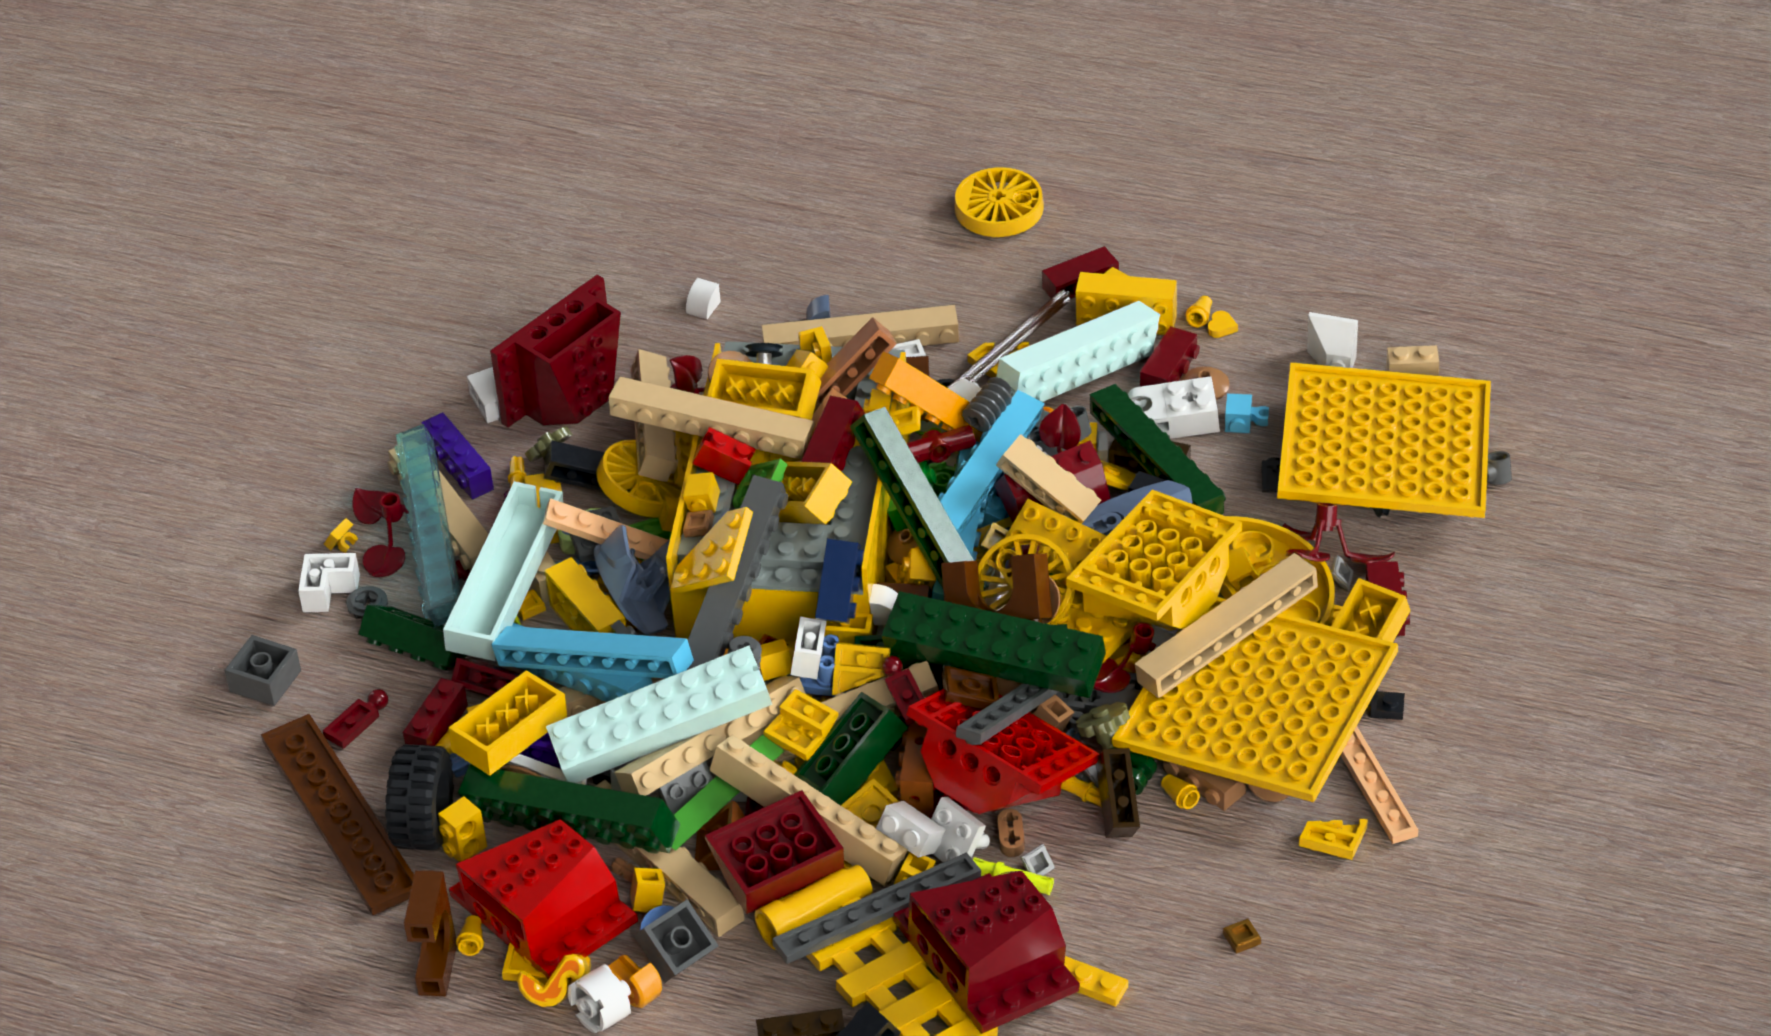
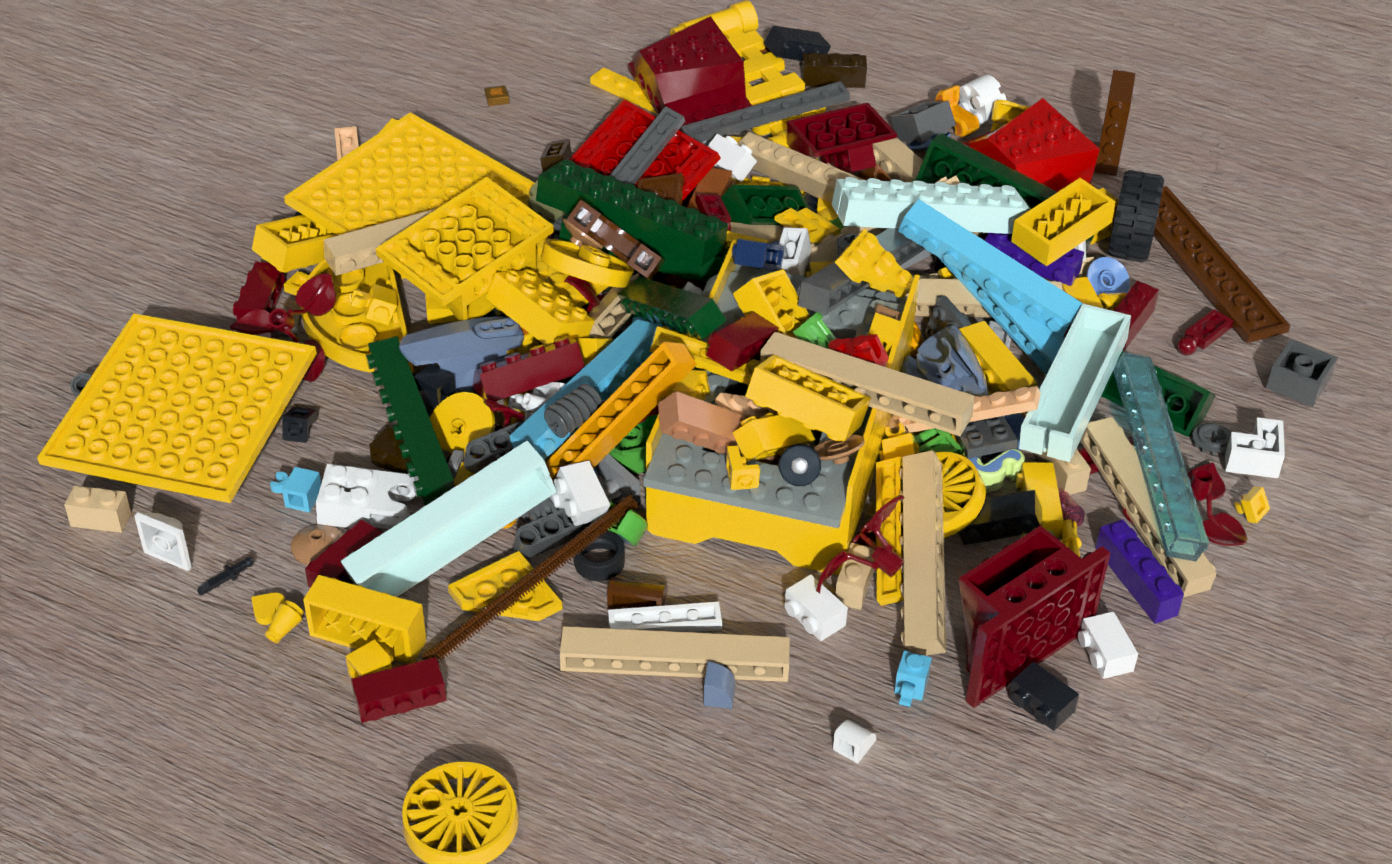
camera: 175 degrees left, 0 degrees up
(658, 339) = (912, 677): none -> medium azure brick
(1047, 480) = (537, 328): tan brick -> none
(1270, 344) = (229, 573): none -> black piece

